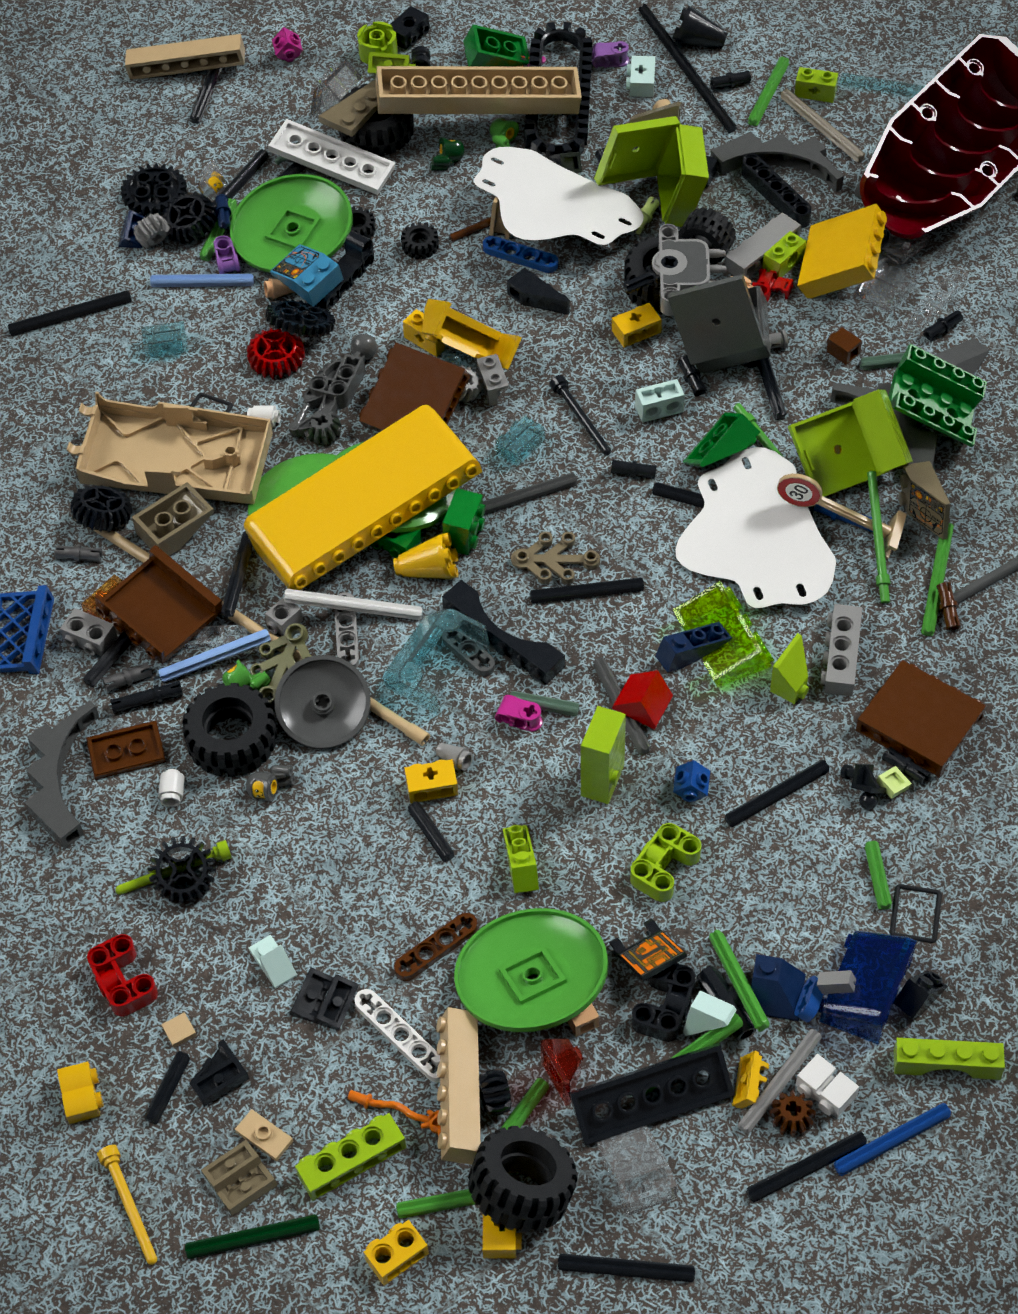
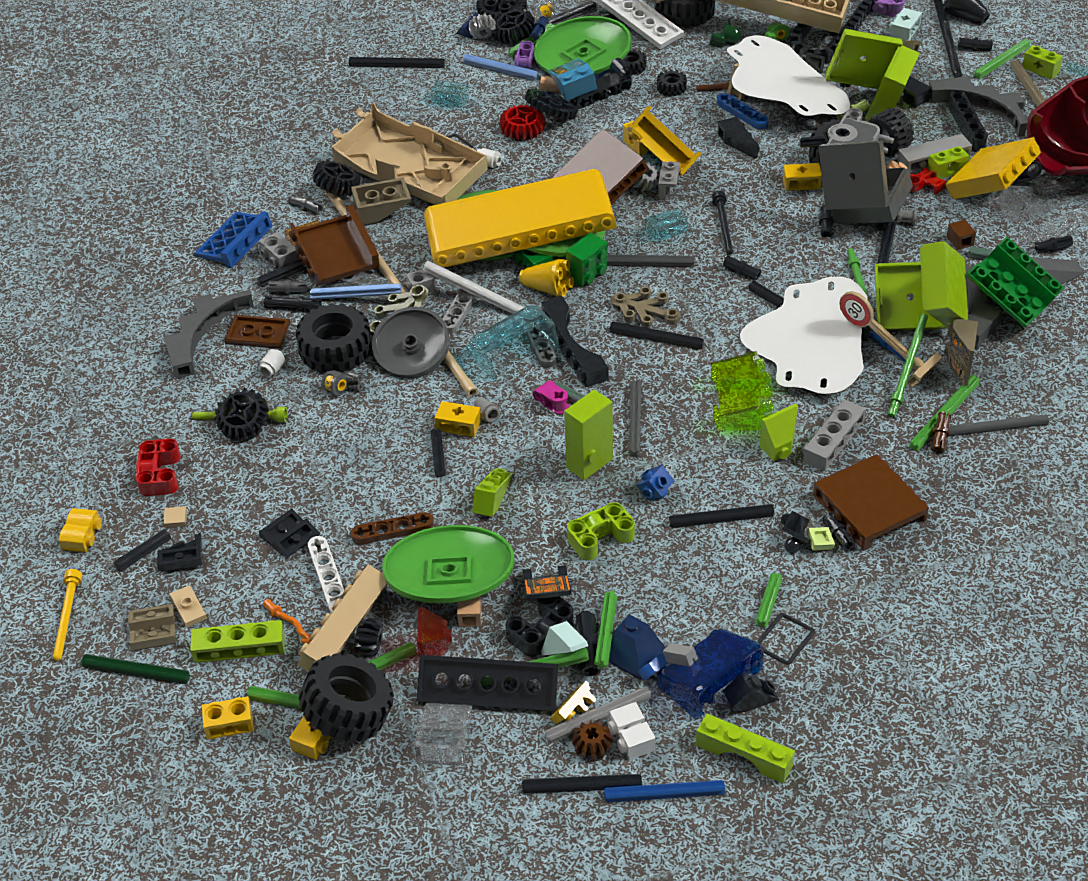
camera: 25 degrees right, 10 degrees down
(237, 576) = (402, 249): black axle -> none
(241, 675) = (366, 307): bright green piece -> none
(273, 961) = (269, 497): light aqua slope -> none
(333, 389) = (547, 155): dark grey arm -> none
(626, 1267) = (394, 799): black axle -> none
(644, 698) = (654, 417): red slope -> none
(659, 400) = (788, 227): light aqua brick -> none
(690, 645) = (705, 393): dark blue slope -> none
(727, 436) = (828, 264): green slope -> none

